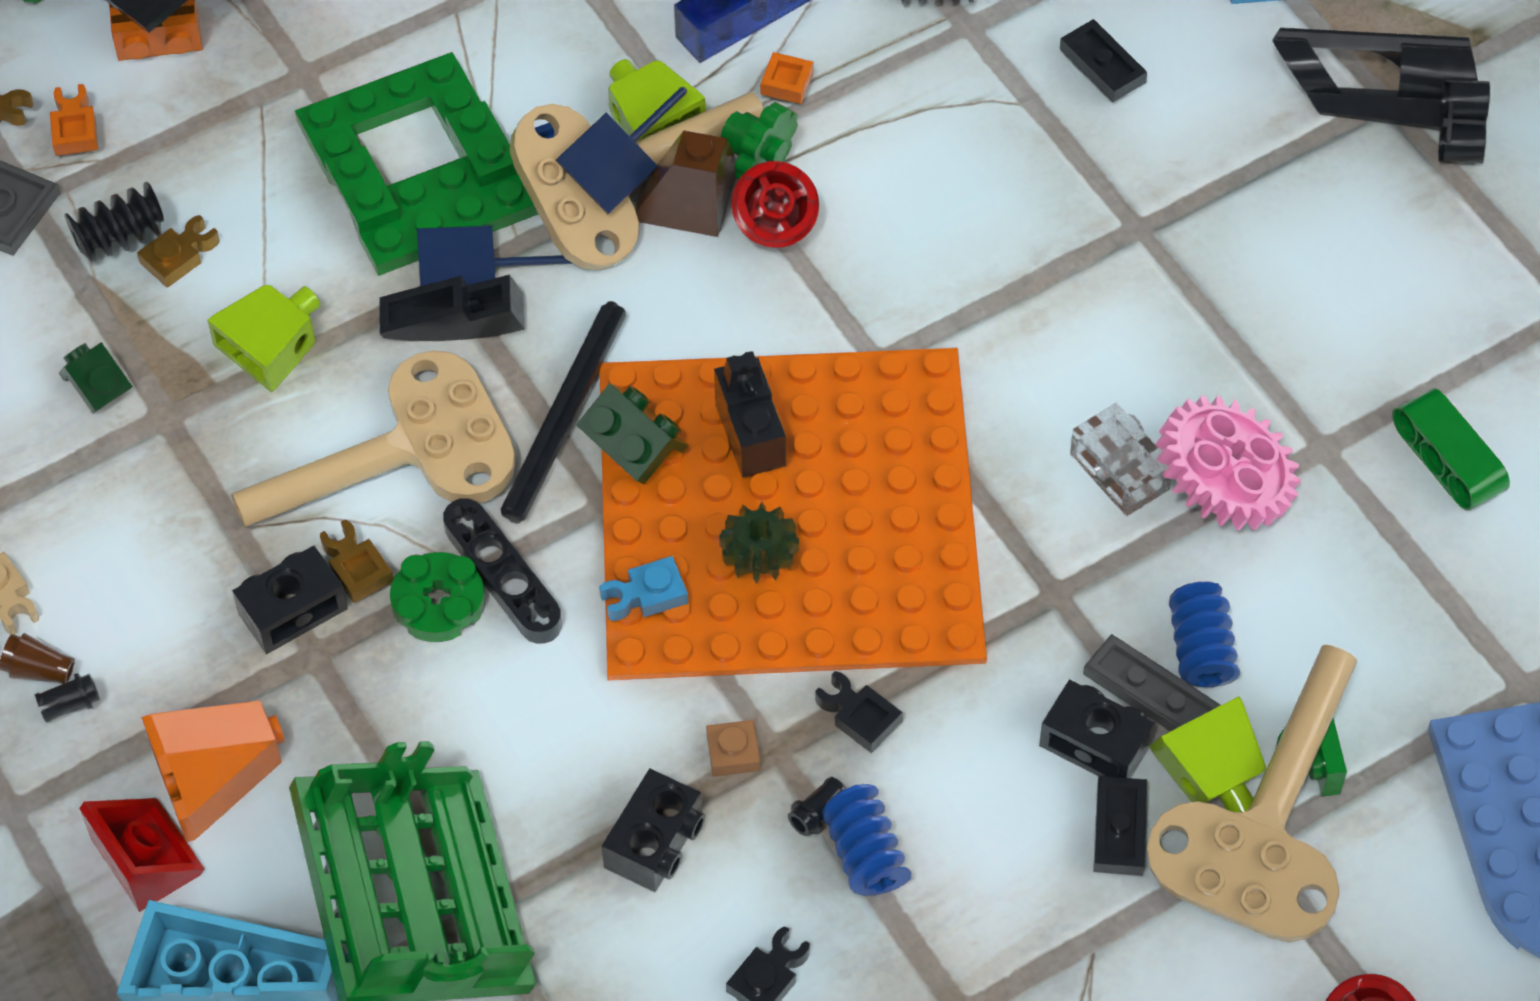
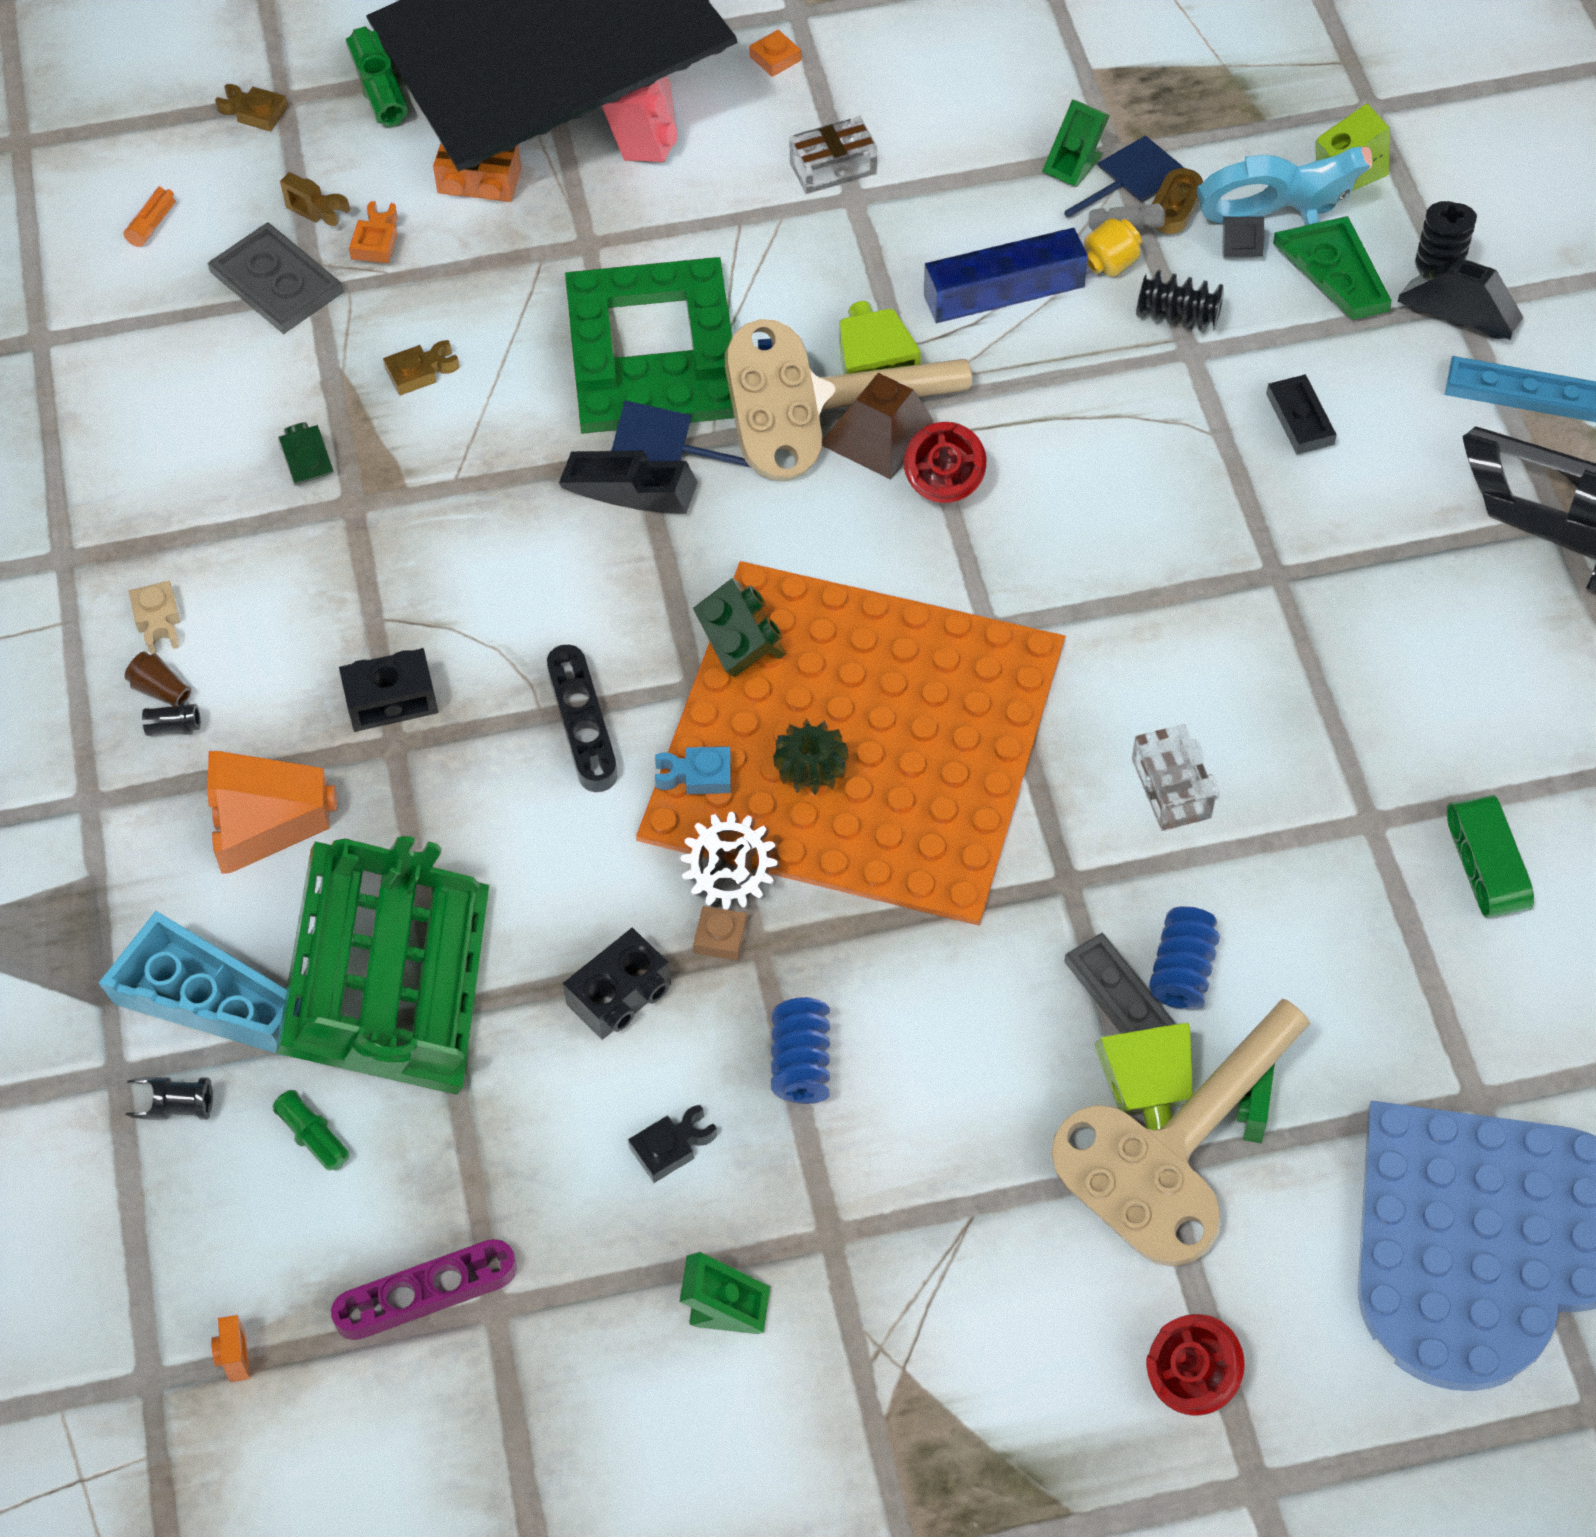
camera: 20 degrees right, 0 degrees up
(116, 222) = (374, 328): black piece -> none
(141, 847) = (177, 864): red slope -> none
(266, 332) = (463, 455): lime torso -> none
(356, 566) = (458, 675): pearl gold plate -> none
(433, 572) = (512, 702): green plate -> none
(441, 428) = (578, 581): tan piece -> none
(563, 412) = (690, 595): black axle -> none
(610, 161) = (811, 385): dark blue piece -> none
(737, 684) = (714, 875): none -> gear
(749, 415) = (845, 641): black hinge -> none
(760, 137) = (956, 399): green plant -> none
(787, 78) = (1005, 355): orange plate -> none
(807, 815) = (759, 1011): black pin -> none
(860, 715) = (844, 938): black plate -> none
(1110, 754) = (1057, 1042): black brick -> none
(1120, 825) = (1040, 1108): black plate -> none
(1228, 463) = (1269, 808): bright pink gear -> none

